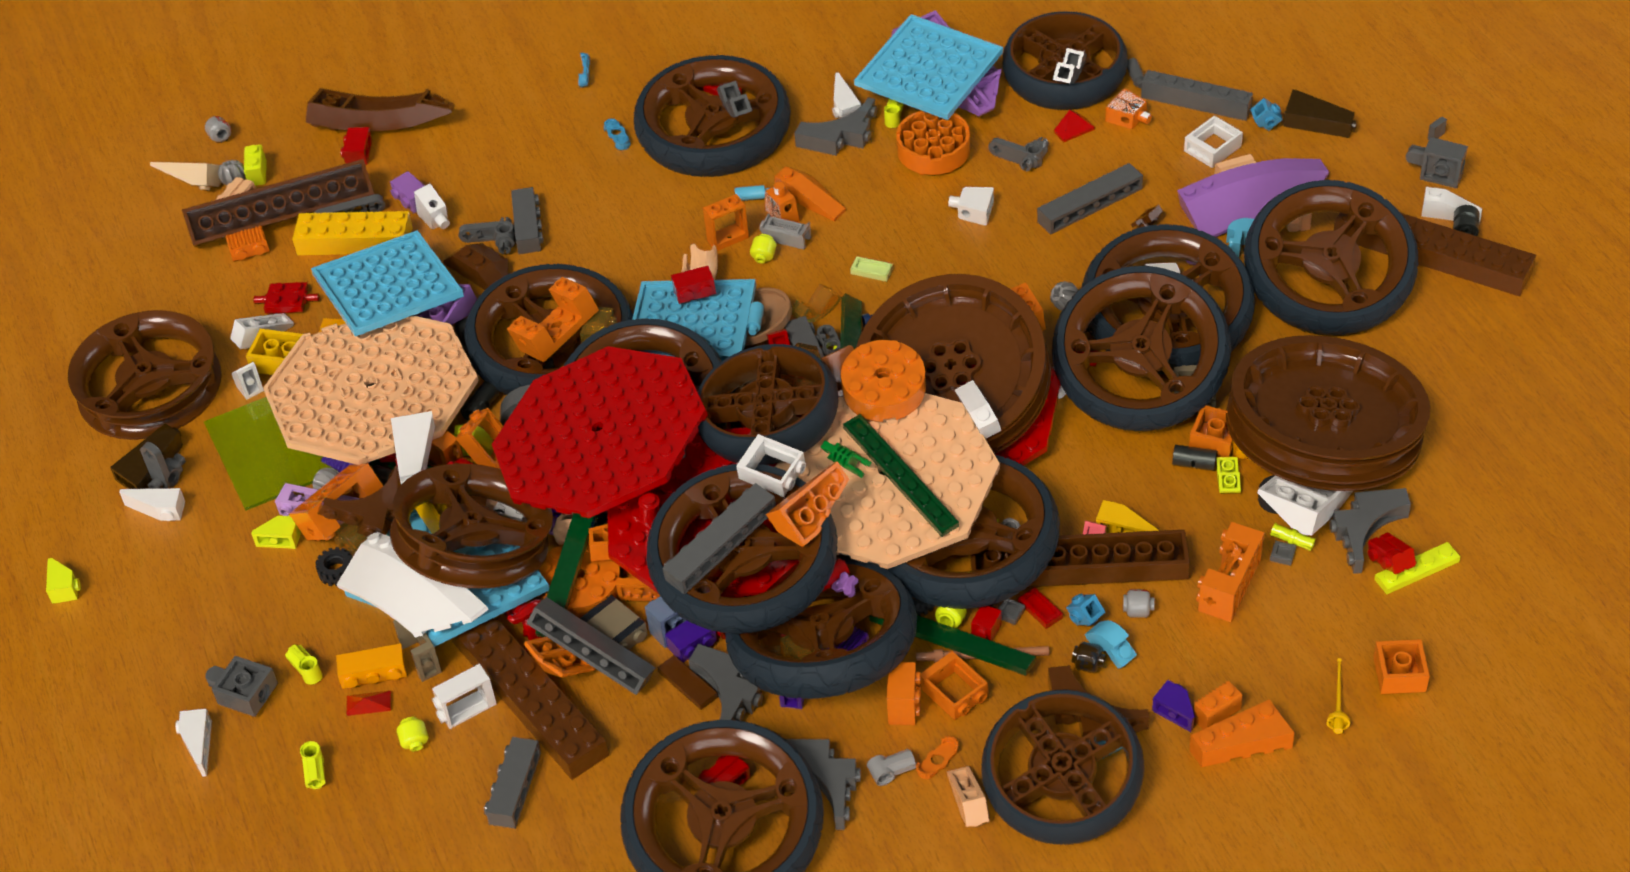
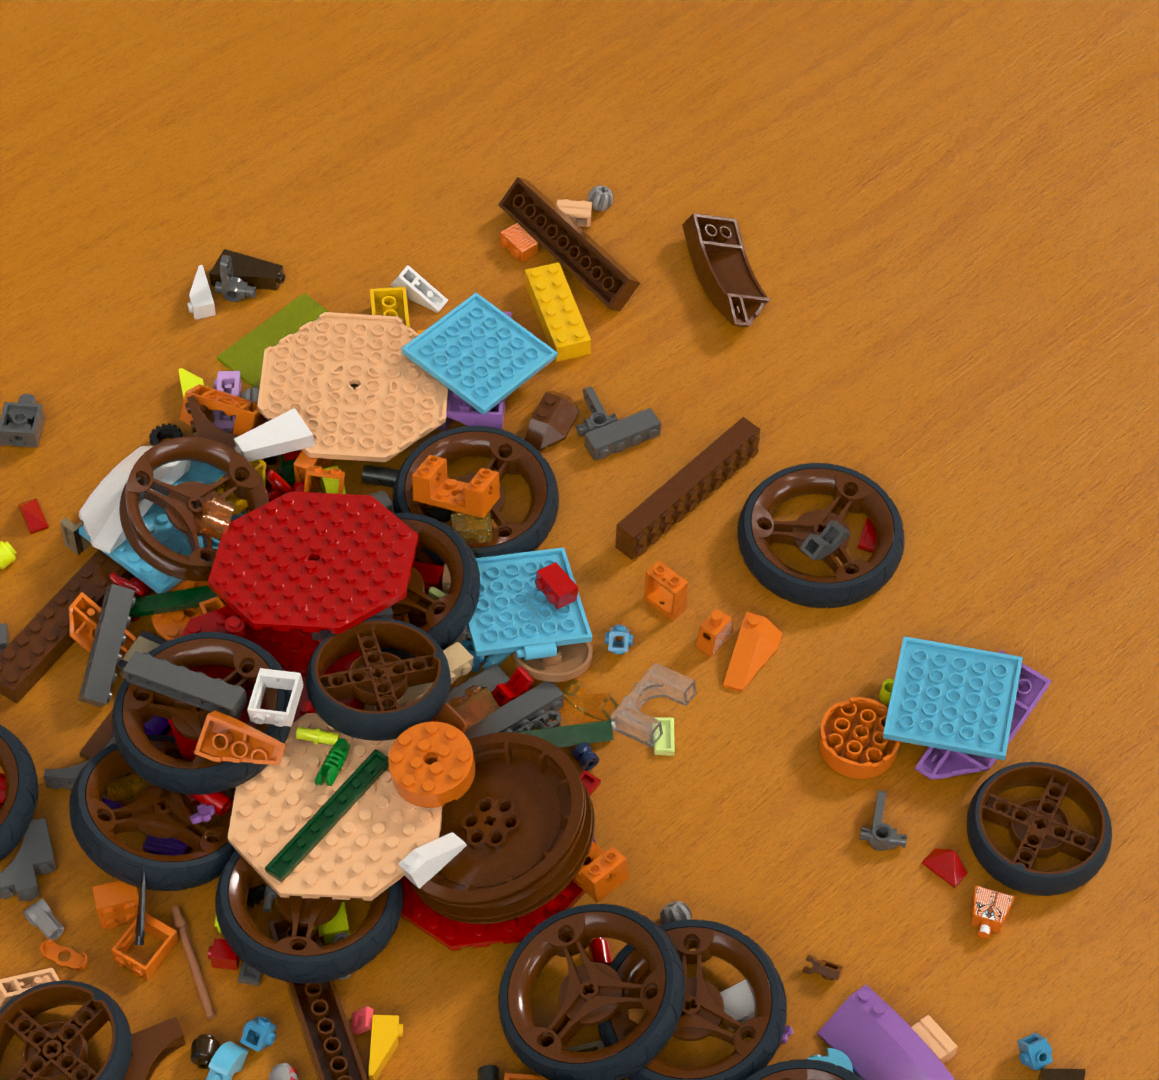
camera: 65 degrees right, 5 degrees up
(61, 582) = (103, 266): neon yellow slope -> none
(145, 374) = (335, 231): reddish brown wheel -> none
(198, 174) = (591, 169): tan wedge -> none
(218, 129) = (654, 167): light grey head -> none
(248, 381) = (353, 301): white slope -> none
(255, 164) = (617, 210): neon yellow brick -> none
(286, 297) = (461, 289): red plate -> none
(304, 664) = (55, 458): neon yellow piece -> none
(350, 205) = (588, 299): dark grey beam -> none
(356, 144) = (672, 274): red brick -> none
(371, 666) = (62, 498): light orange brick -> none
(403, 190) = (623, 334): medium lavender brick -> none
(431, 207) = (606, 356): white torso -> none
(468, 706) = (39, 573): white window -> none
(499, 502) = (216, 517): none -> clear orange brick
(583, 78) = (838, 416): dark azure piece -> none
(618, 186) = (687, 488): none -> reddish brown brick
(621, 140) = (764, 471): dark azure piece -> none
(701, 258) = (599, 591): light nougat hair -> none
(751, 192) = (730, 603): medium azure cylinder -> none
(760, 268) = (616, 646): none -> dark azure brick
(763, 248) = (653, 634): neon yellow head -> none
(786, 231) = (684, 644): light grey window -> none
(811, 461) = (316, 736): none -> neon yellow pin
(832, 135) = (853, 660): dark grey arch -> none
(844, 99) = (888, 644): white slope -> none
(851, 280) = (656, 683): none -> clear arch
(937, 666) = (140, 925): none -> black bar
(971, 645) = (193, 945): dark green tile -> none
(974, 204) = (785, 801): white torso -> none
(1040, 608) = (261, 997): red tile -> none
(1071, 67) = (993, 829): brick -> none
(1089, 198) = (835, 906): dark grey brick -> none
(1135, 72) = (1057, 906): dark grey cylinder -> none
(1196, 95) = (1041, 973): dark grey brick -> none
(1205, 153) = (980, 993): white window -> none

